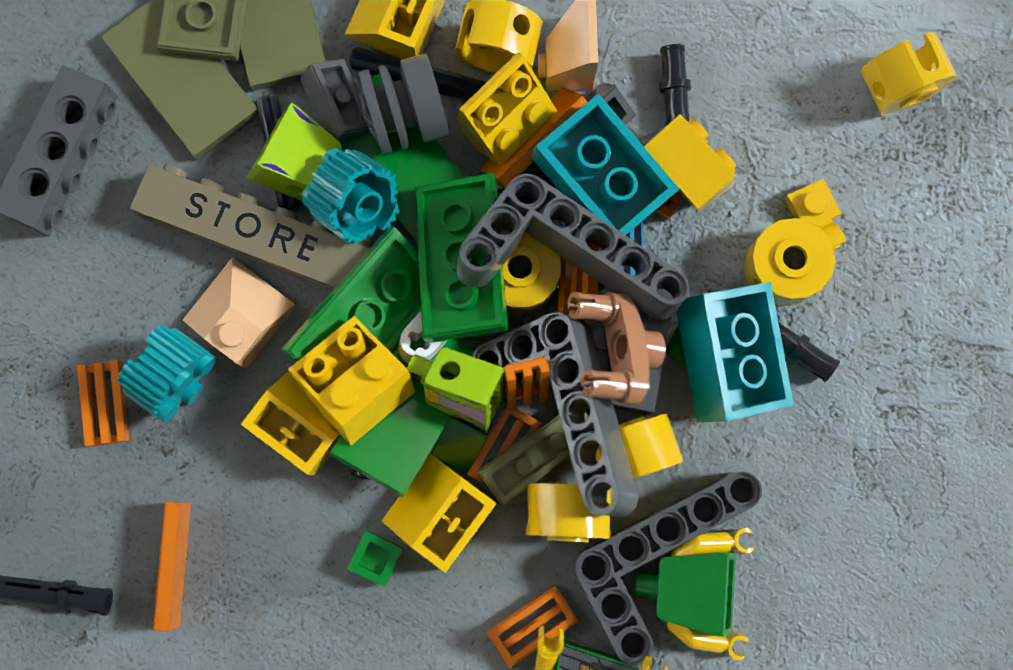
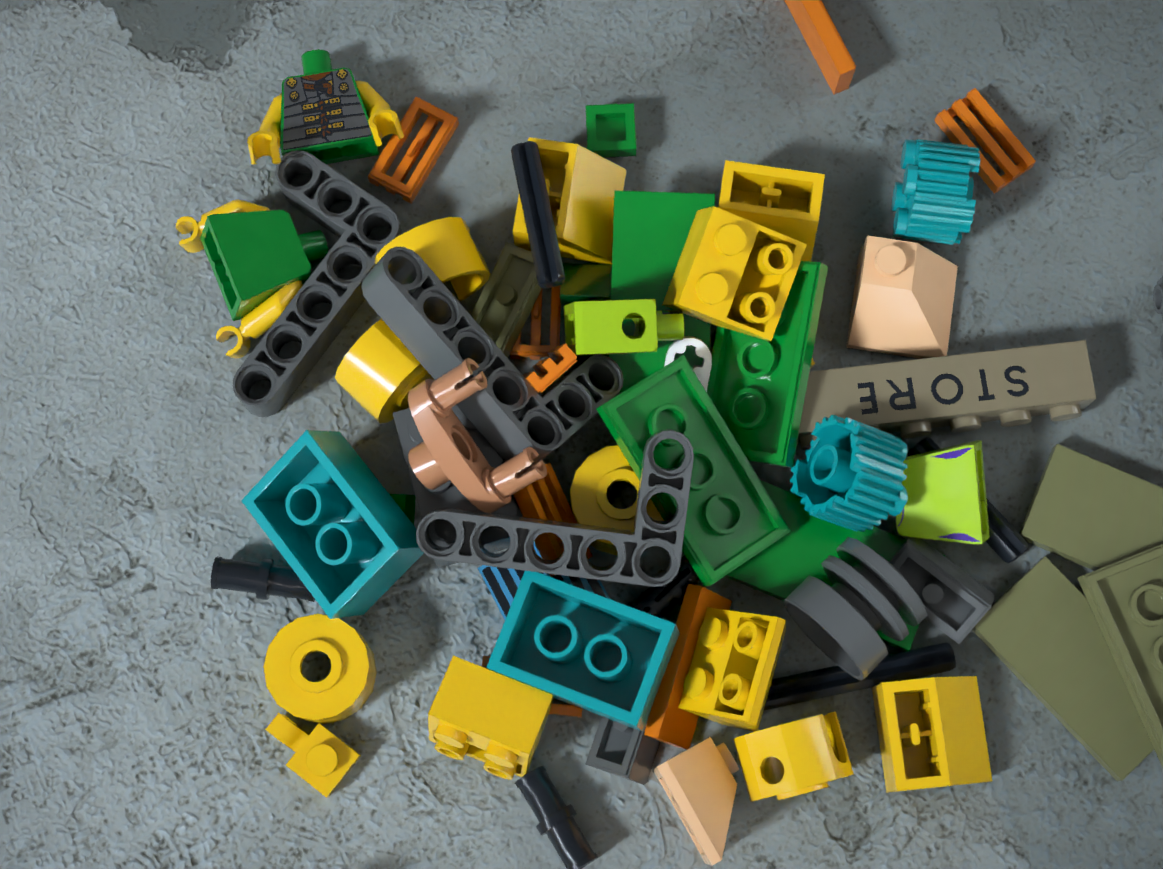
camera: 155 degrees right, 5 degrees down
(472, 503) = (538, 214): none -> black axle

